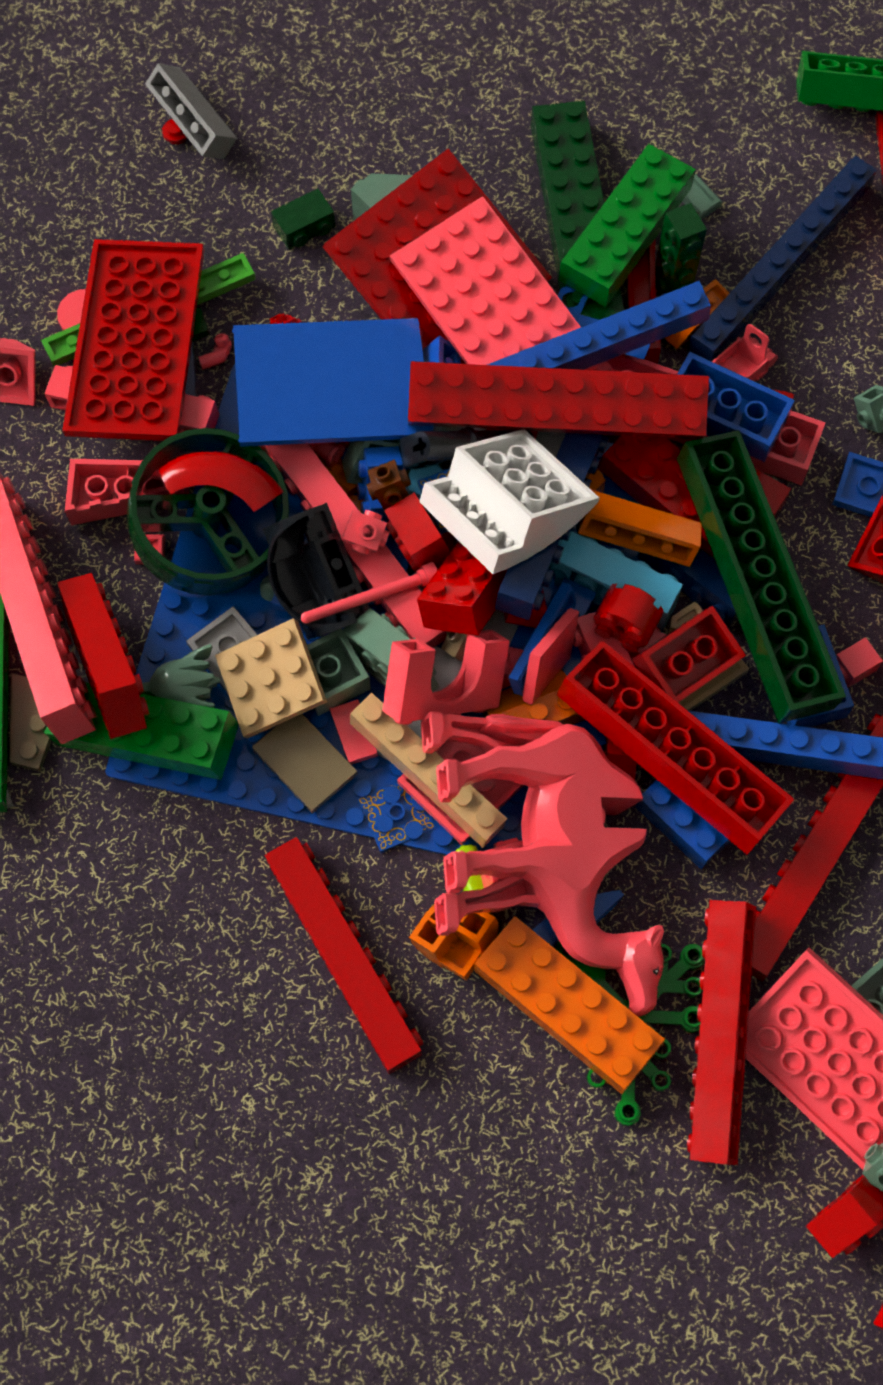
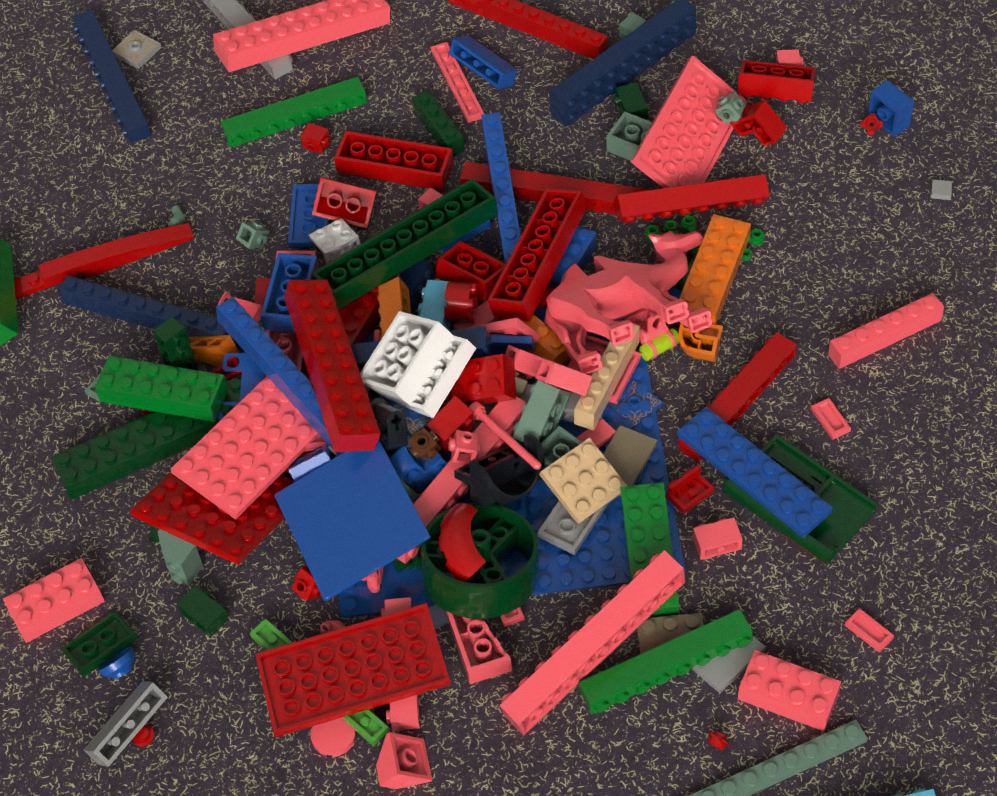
camera: 105 degrees left, 15 degrees down
(100, 984) = (849, 505): none -> dark green piece
(104, 655) = (616, 566): red brick -> none
(132, 830) = (717, 538): none -> coral brick
(184, 679) = (608, 537): sand green piece -> none
(196, 911) = (755, 472): none -> blue plate
(217, 825) = (689, 490): none -> red bracket
(256, 1072) = (830, 418): none -> coral tile
(272, 119) = (118, 664): none -> blue piece
(311, 111) = (99, 643): none -> dark green tile
(365, 1224) = (885, 330): none -> coral brick
(387, 75) = (53, 600): none -> coral brick
(825, 509) = (335, 239): none -> white bracket

